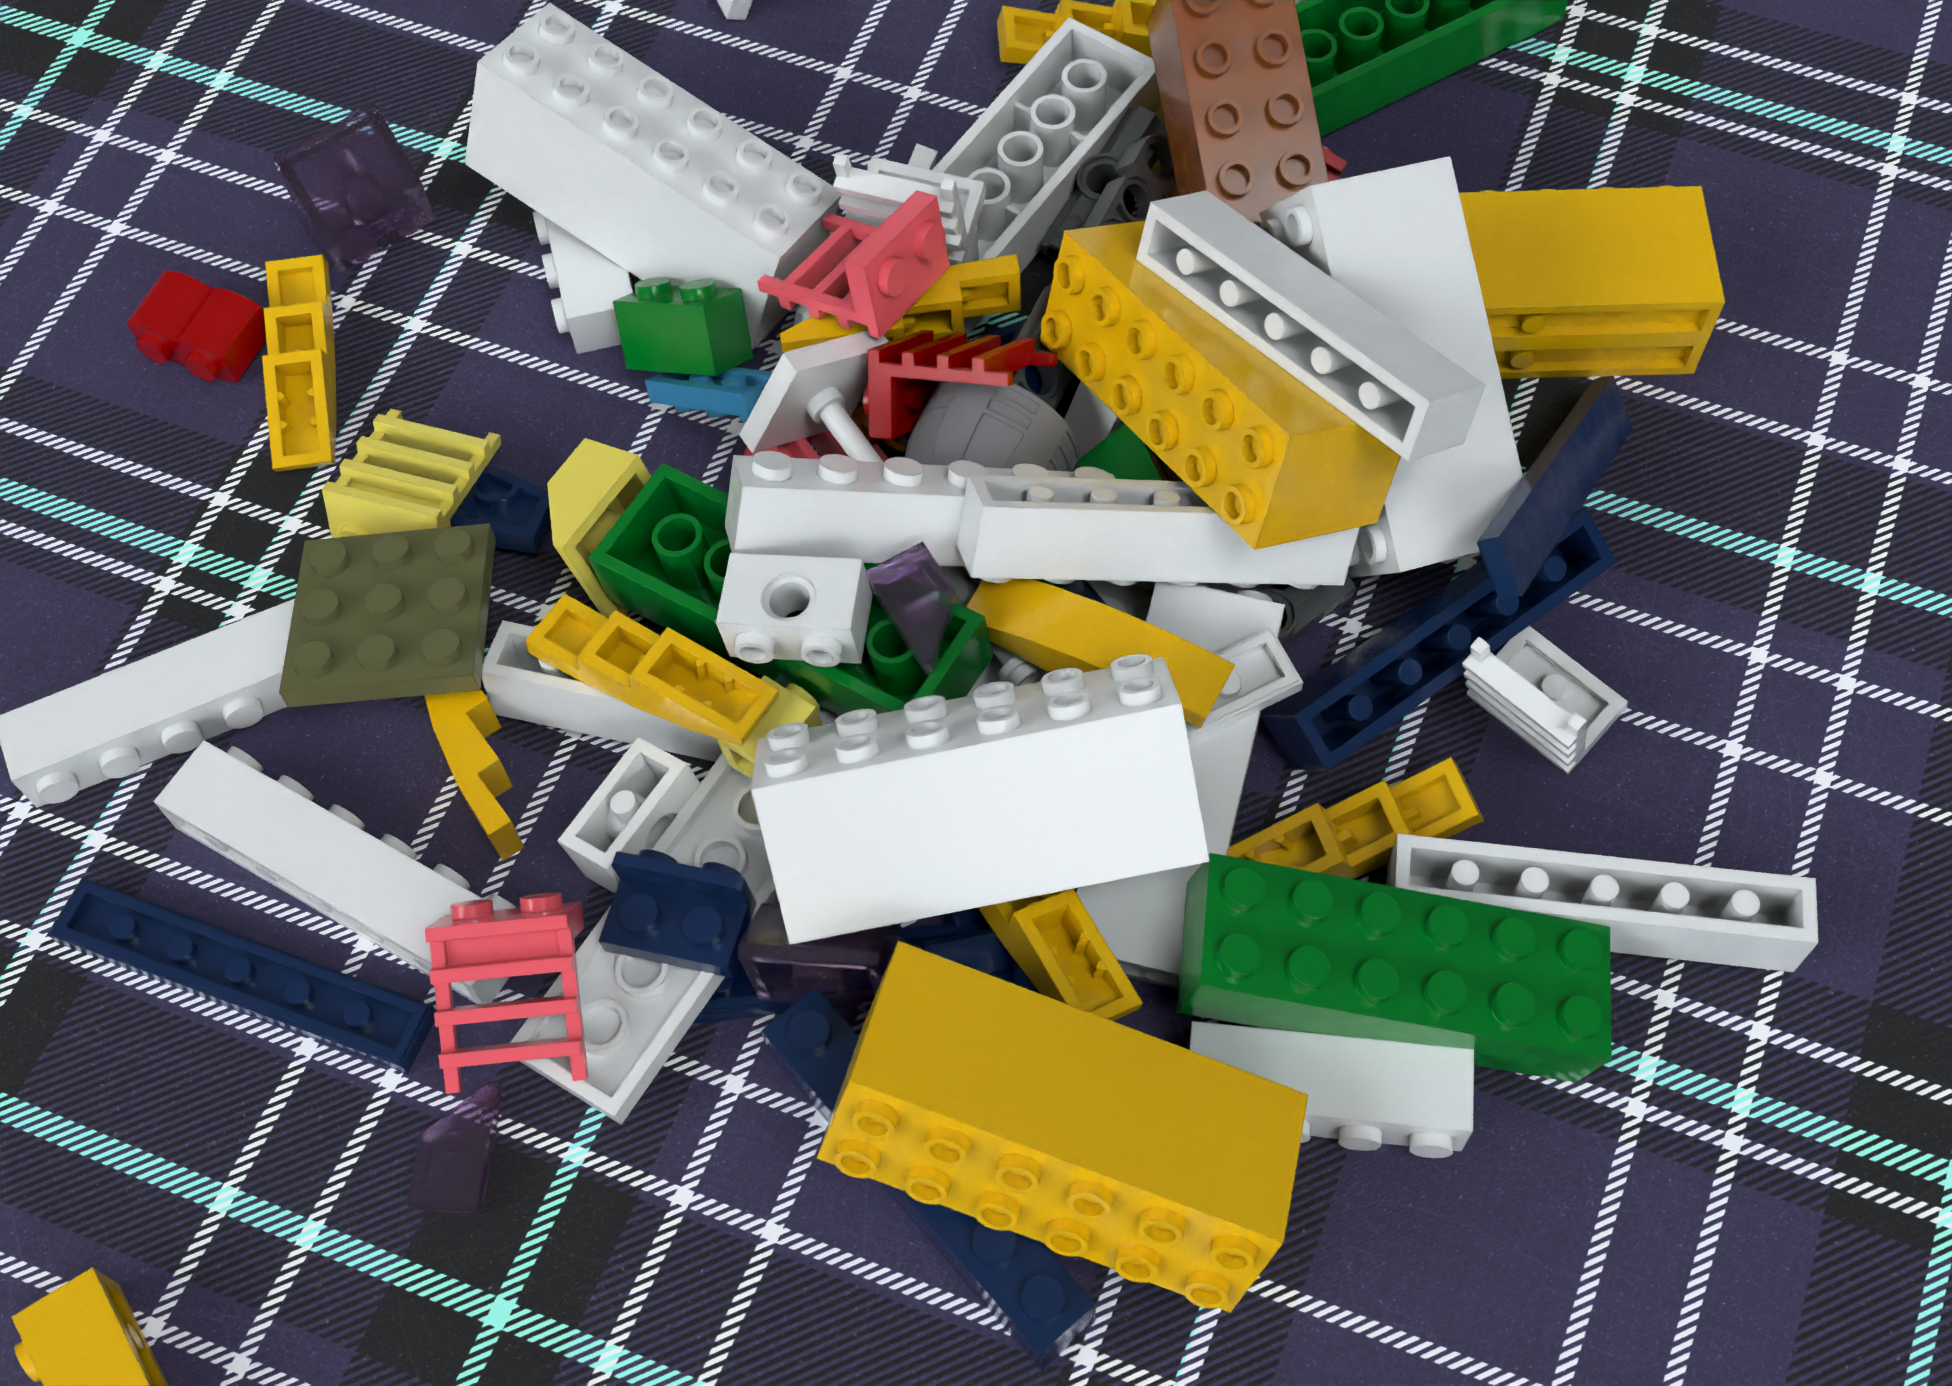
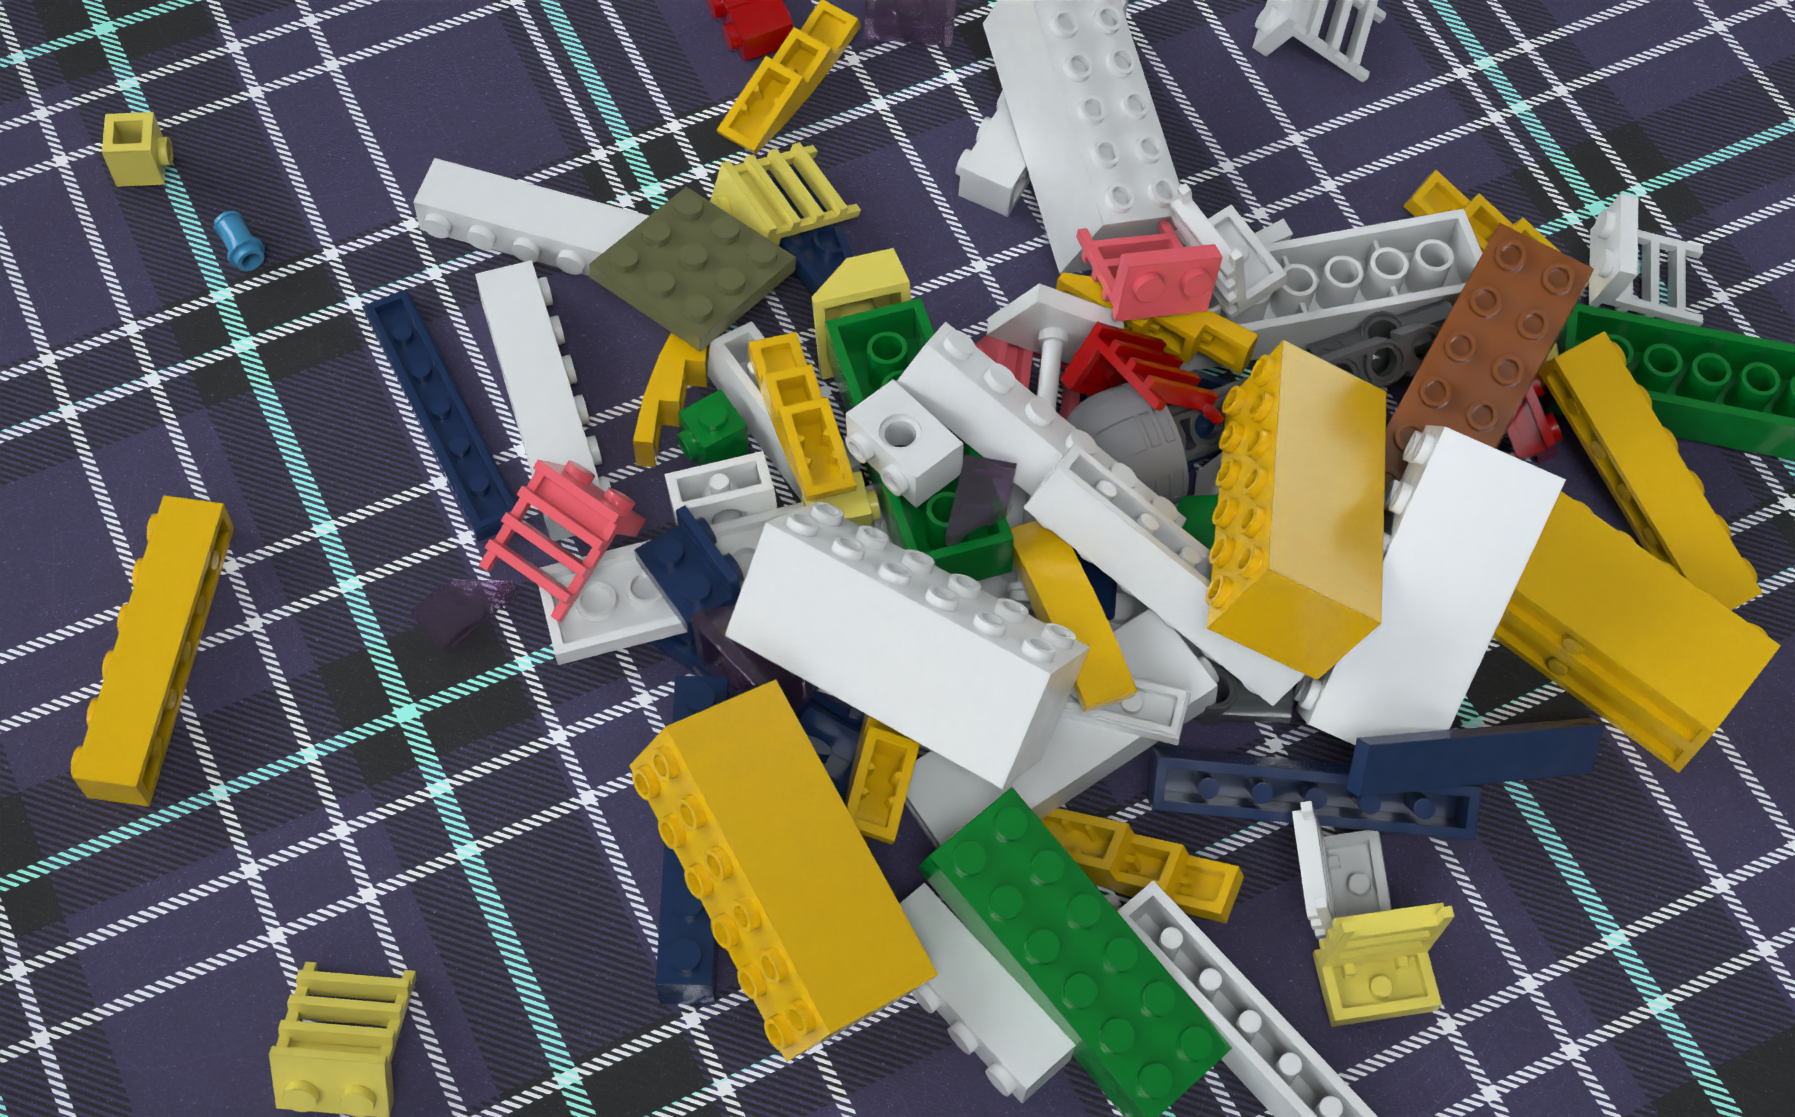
camera: 35 degrees right, 0 degrees up
(559, 763) = (712, 430): none -> green brick
(683, 327) = (1024, 226): green brick -> none
(721, 395) = (1003, 273): dark azure plate -> none
(1310, 325) = (1364, 515): white brick -> none
(1423, 118) = (1645, 470): none -> yellow brick
(1647, 743) = (1380, 964): none -> light yellow plate

